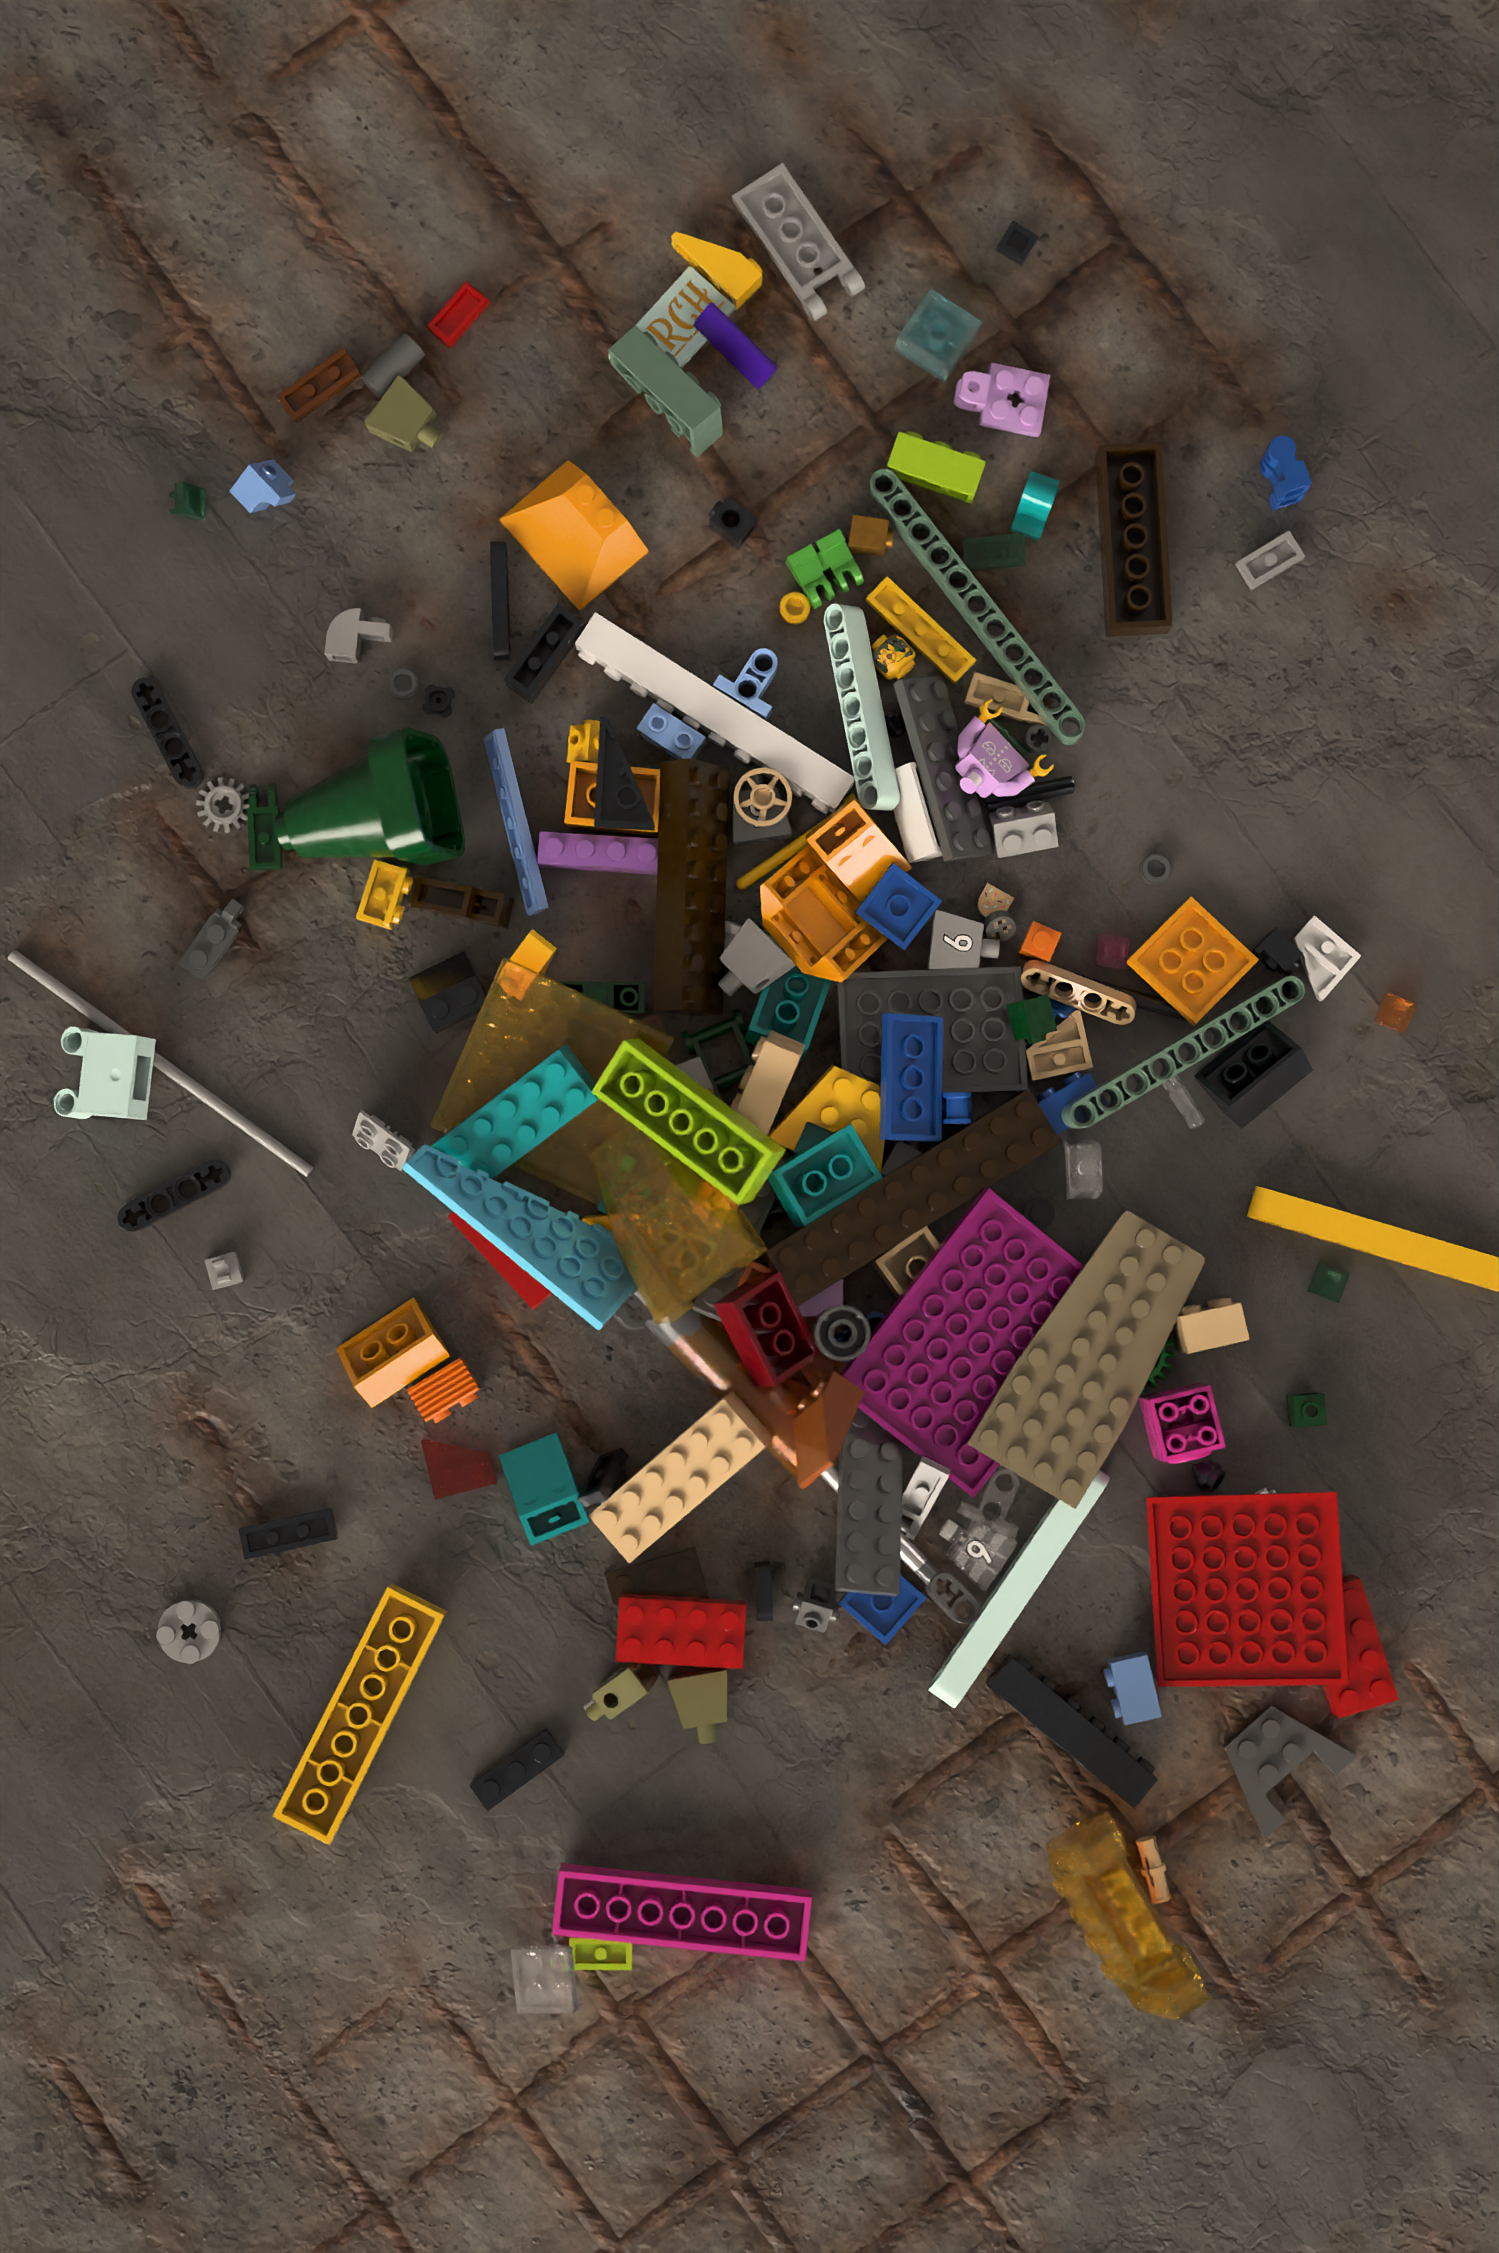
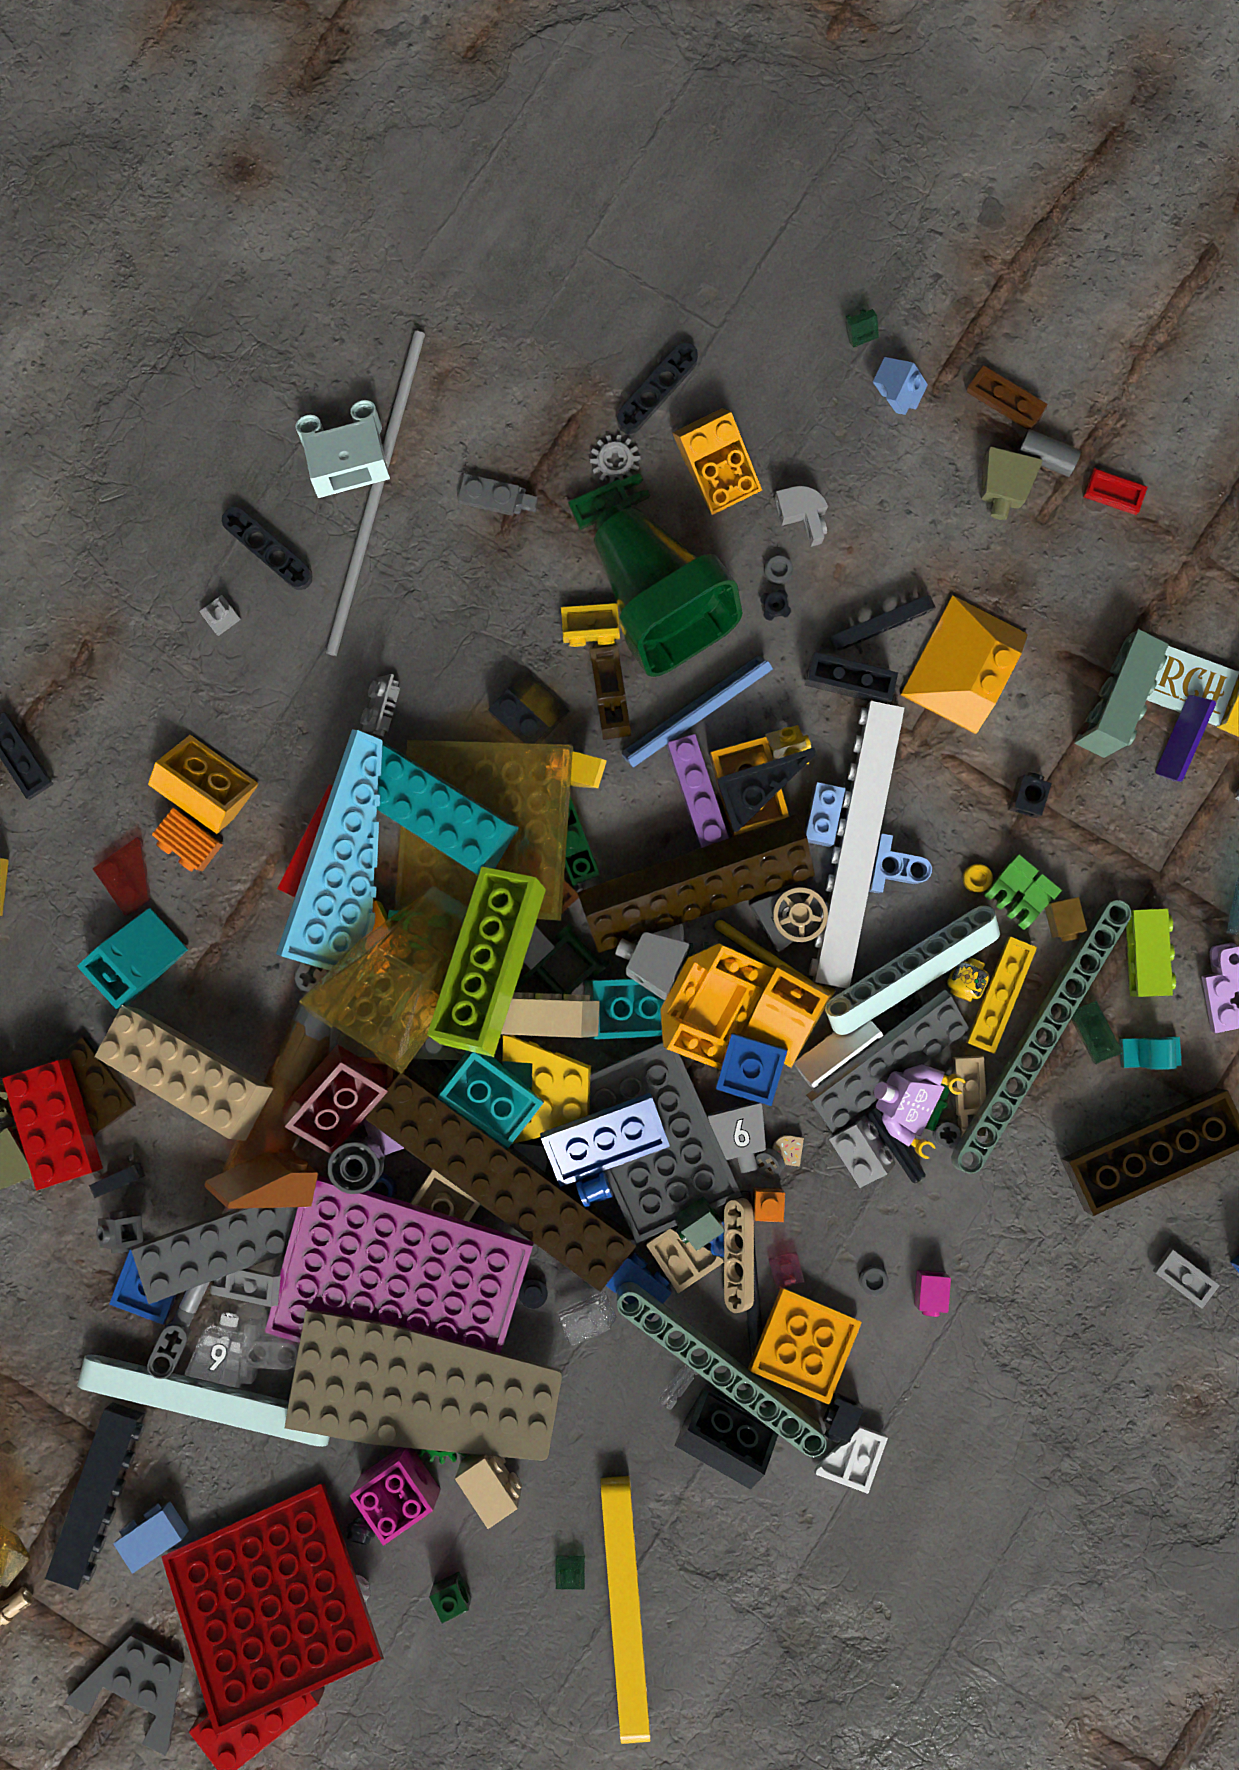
camera: 75 degrees right, 0 degrees up
(266, 701) = (717, 460): none -> light orange slope
(603, 1477) = (159, 1005): black plate -> none
(1189, 815) = (932, 1292): none -> dark pink brick
(1395, 1013) = (830, 1541): clear orange tile -> none

